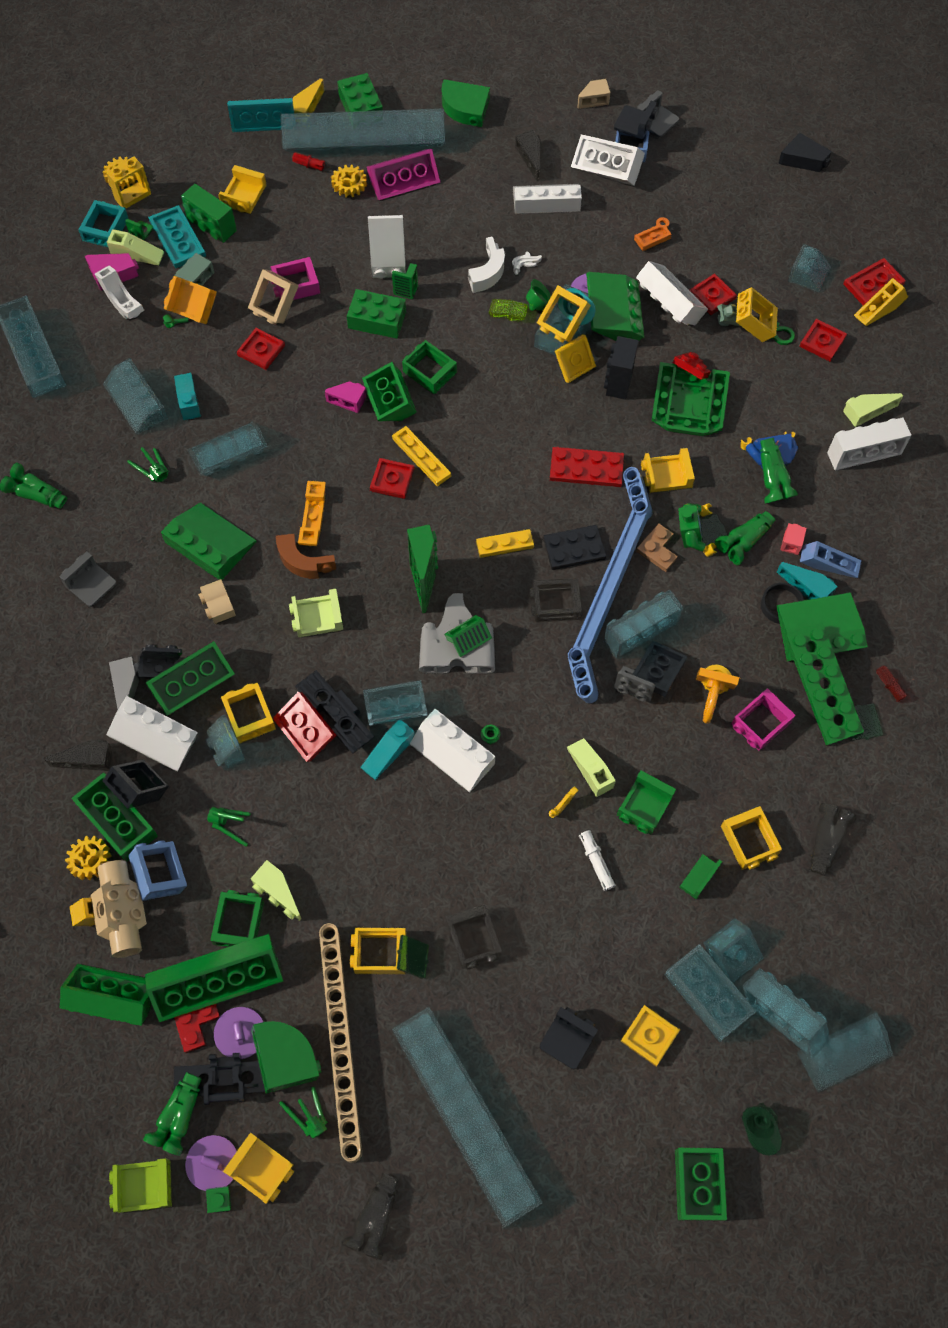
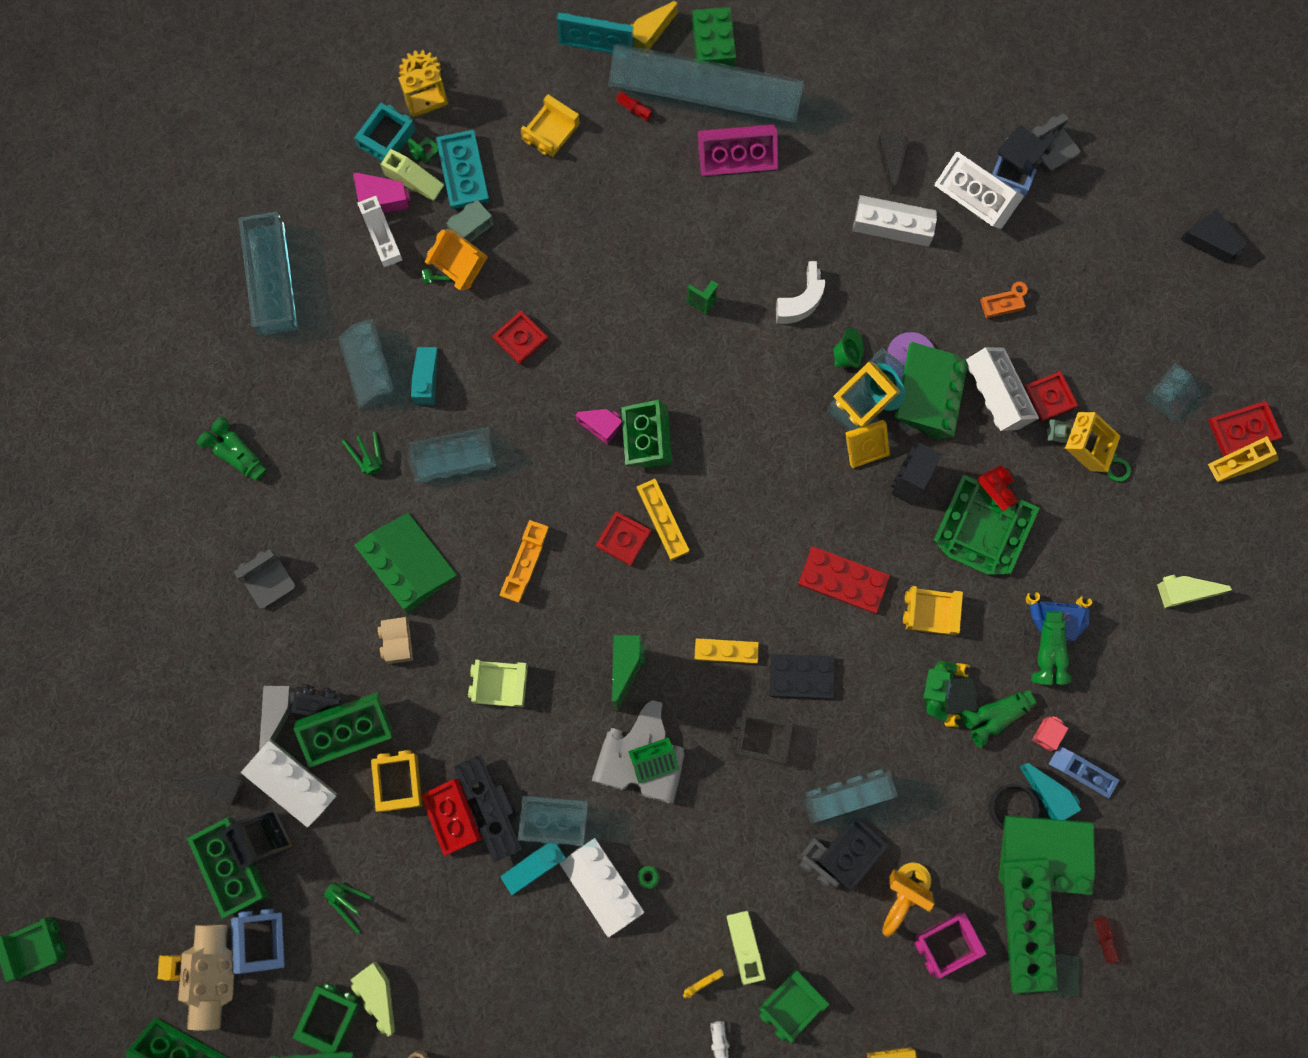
camera: 15 degrees right, 10 degrees up
(87, 857) = (181, 901): yellow gear -> none
(209, 213) = (503, 151): green brick -> none
(225, 744) = (362, 815): clear light blue slope -> none
(285, 302) = (560, 266): tan window -> none
(298, 563) = (487, 605): dark orange arch -> none
(305, 289) = (579, 275): dark pink window -> none
(349, 180) = (671, 146): yellow gear -> none
(376, 313) = (659, 327): green brick -> none
(386, 245) = (690, 252): white slope -> none
(448, 369) = (713, 425): green window -> none
(465, 102) = (834, 70): green brick -> none
(511, 309) = (811, 357): clear neon green slope -> none
(525, 260) = (847, 297): white piece -> none
(594, 94) = (989, 96): tan slope -> none
(609, 586) = (827, 737): medium blue piece -> none
(654, 550) = (889, 700): medium nougat plate -> none
(823, 340) = (1161, 489): red plate -> none
(869, 443) = (1173, 640): white brick -> none

